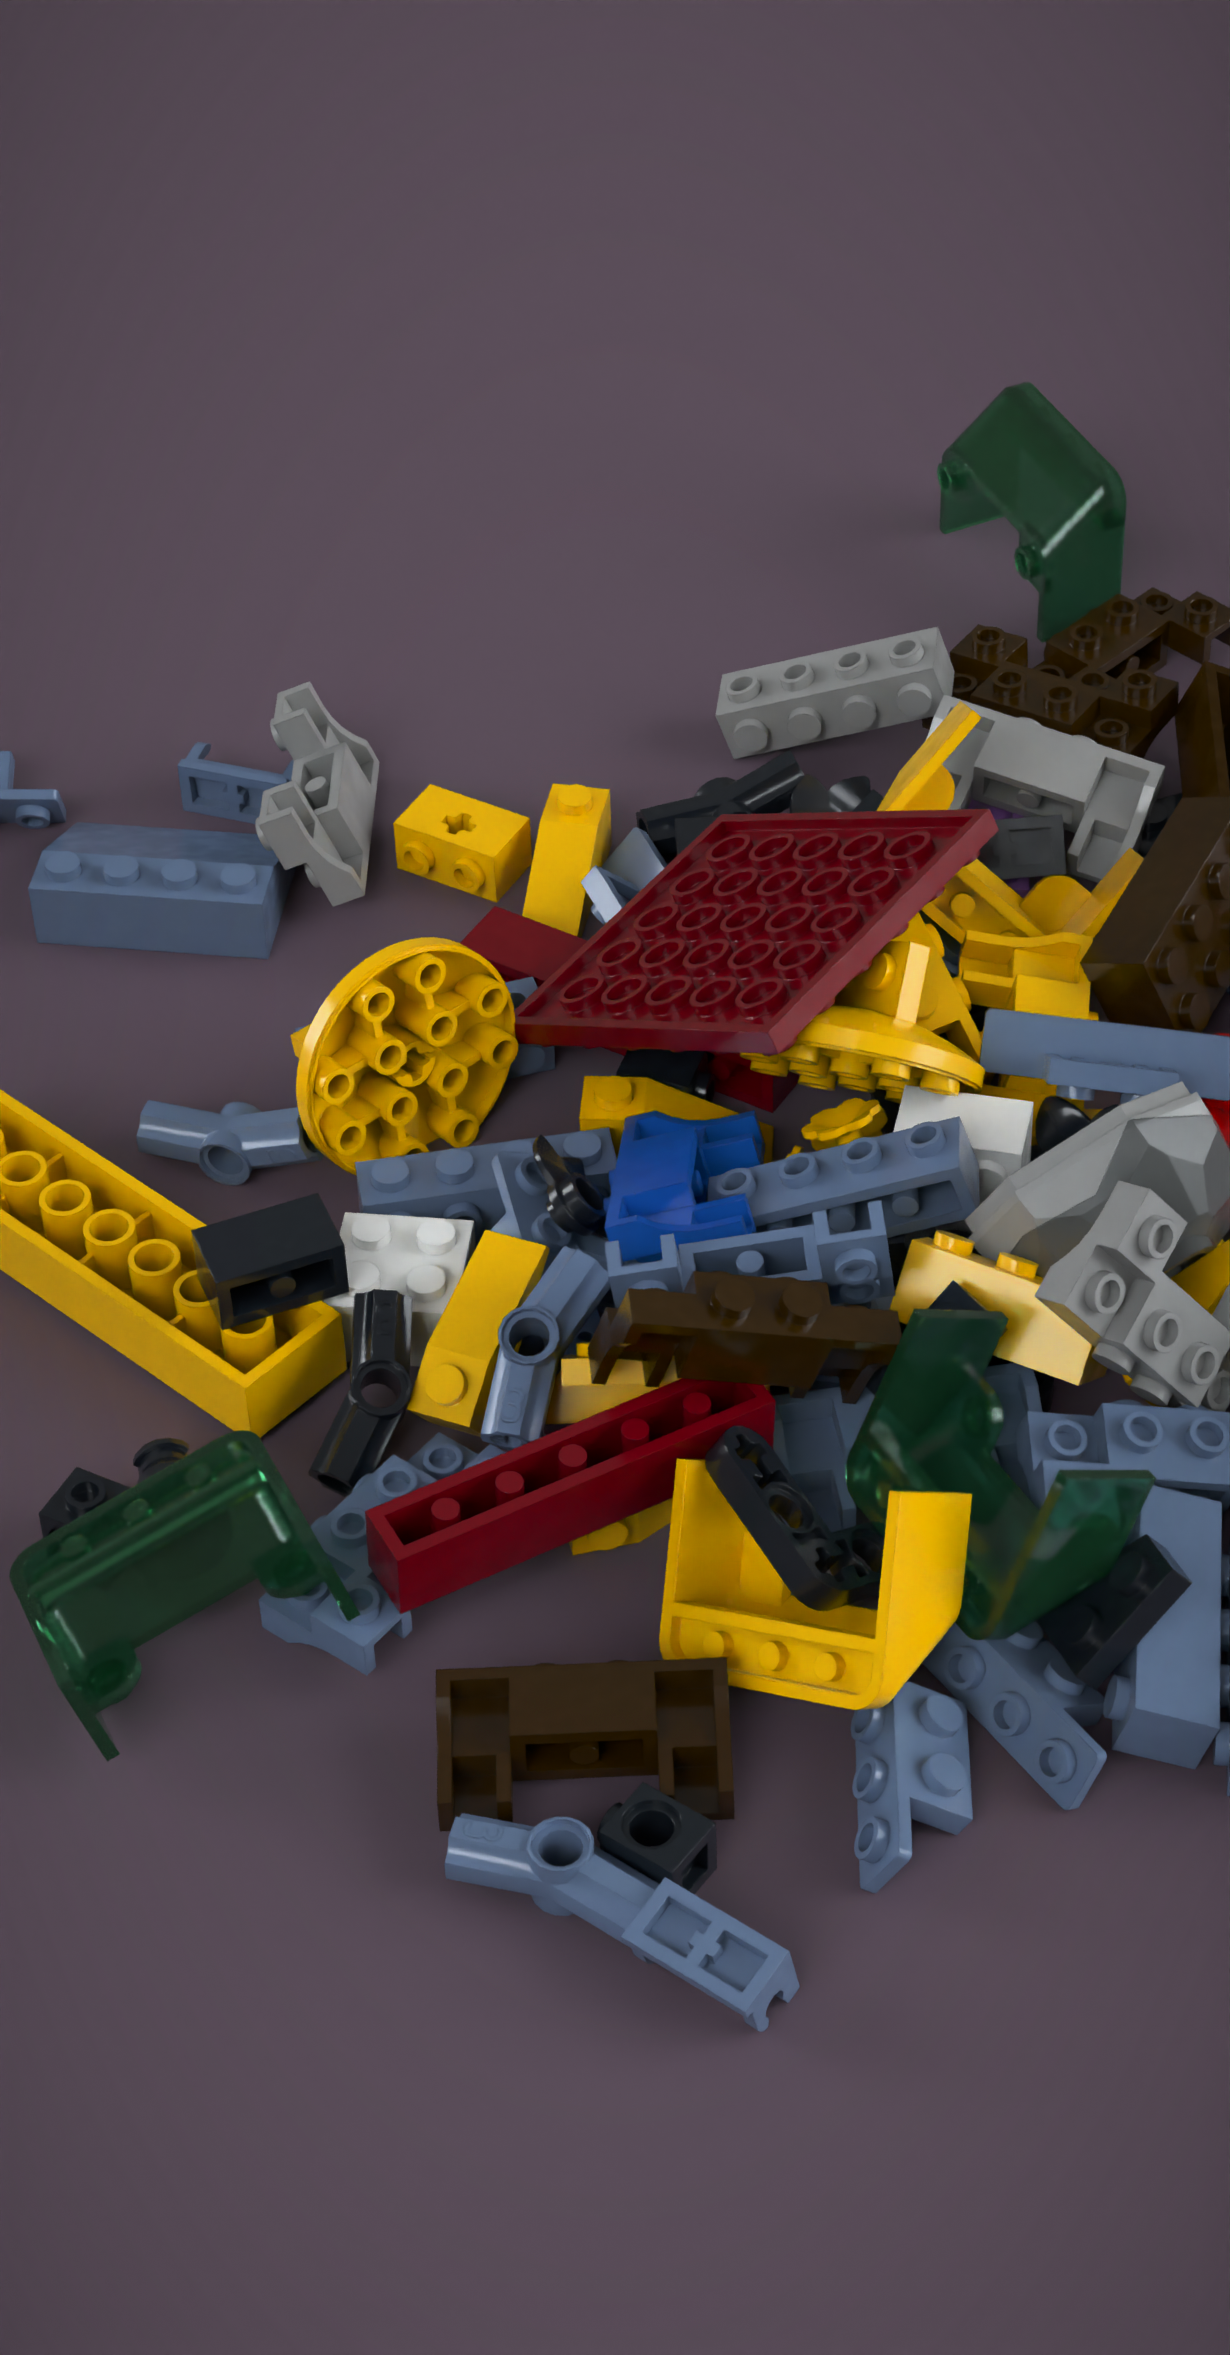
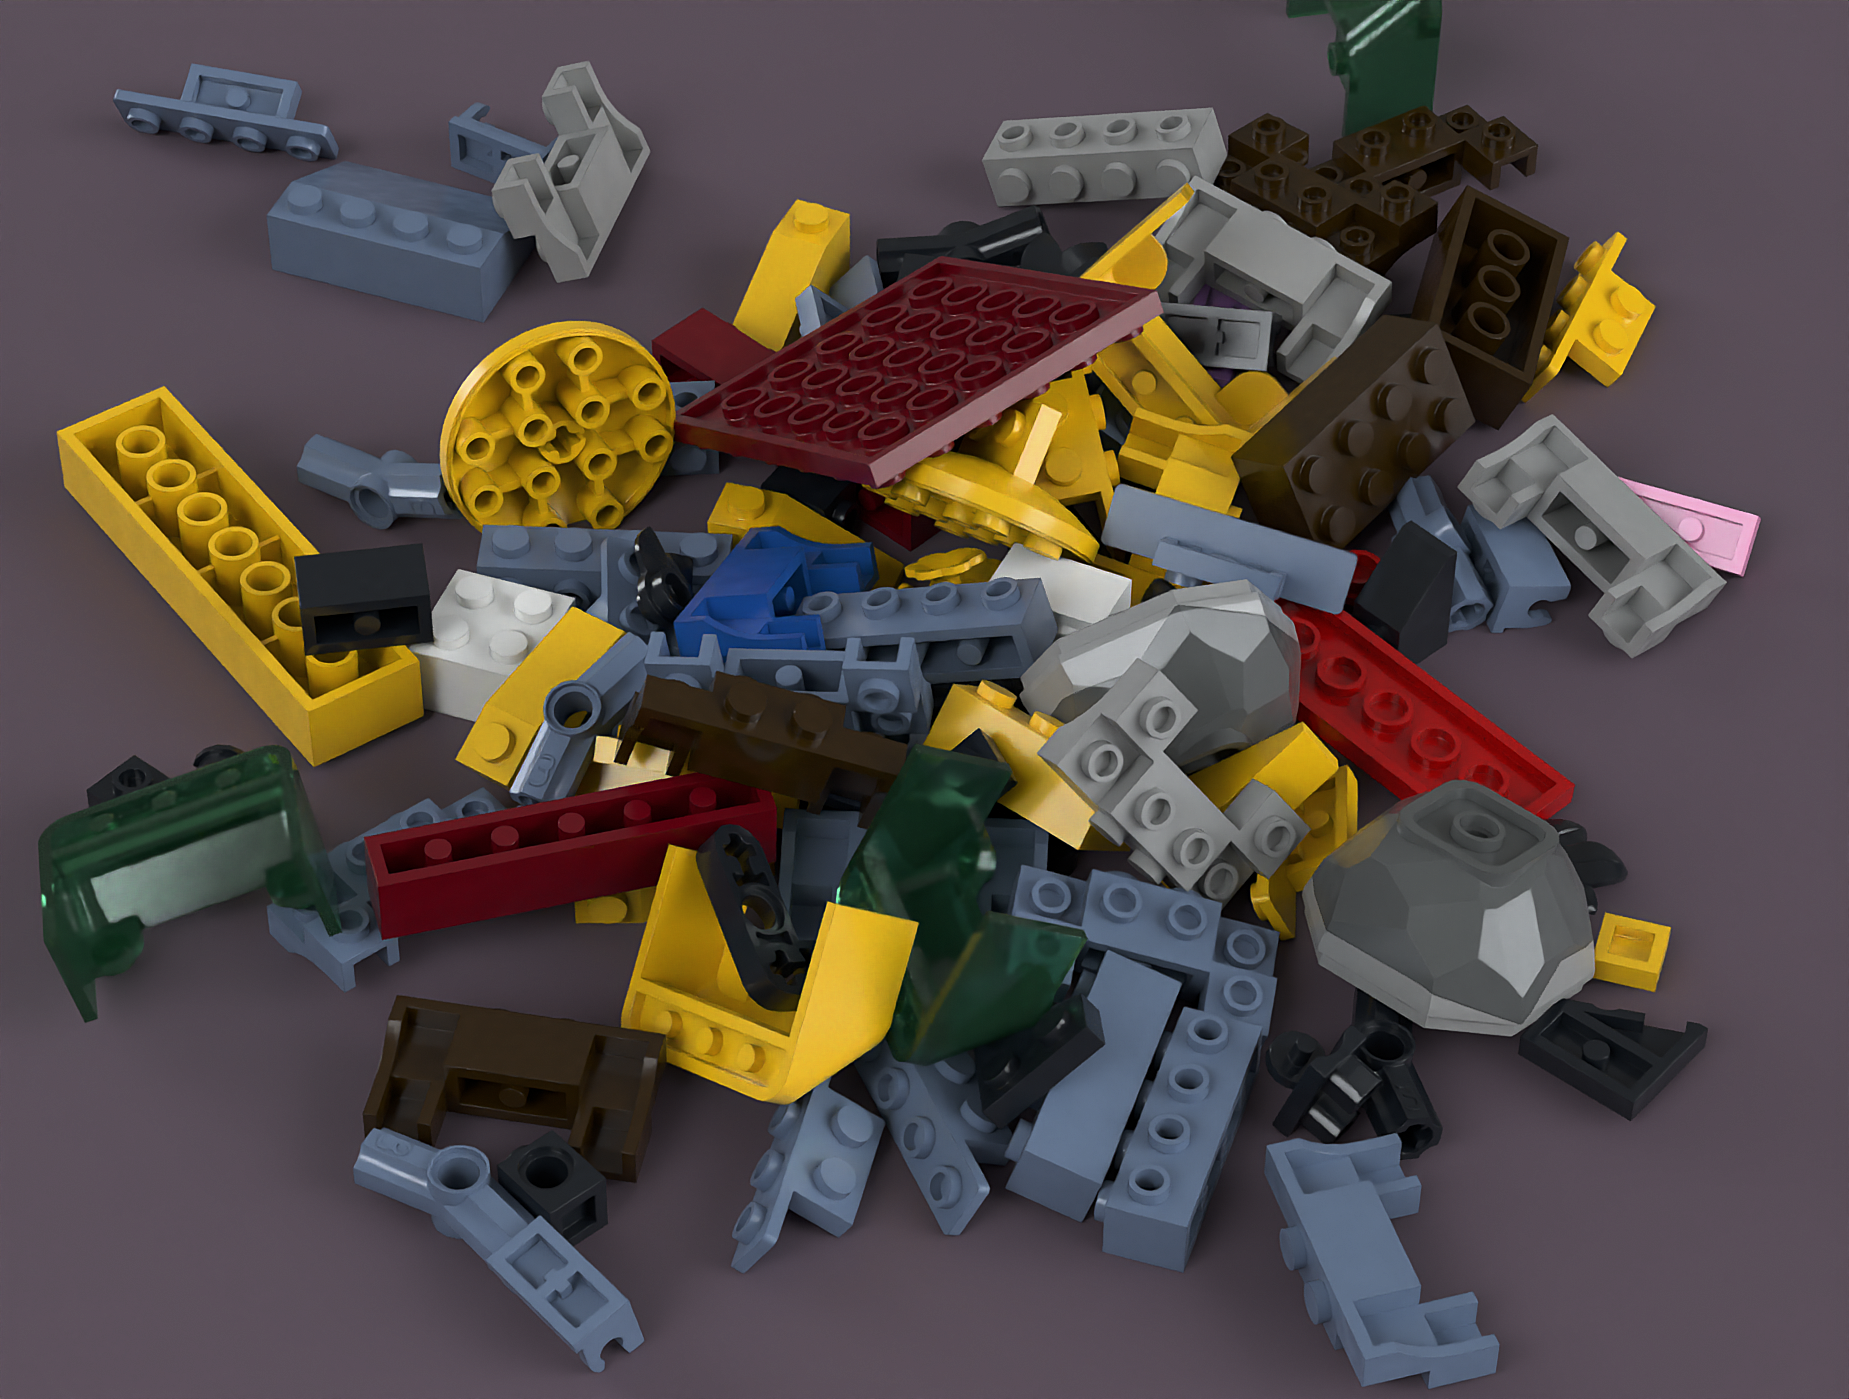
camera: 10 degrees right, 0 degrees up
(377, 1357) = (442, 706): black piece -> none
(463, 843) = (699, 242): yellow brick -> none

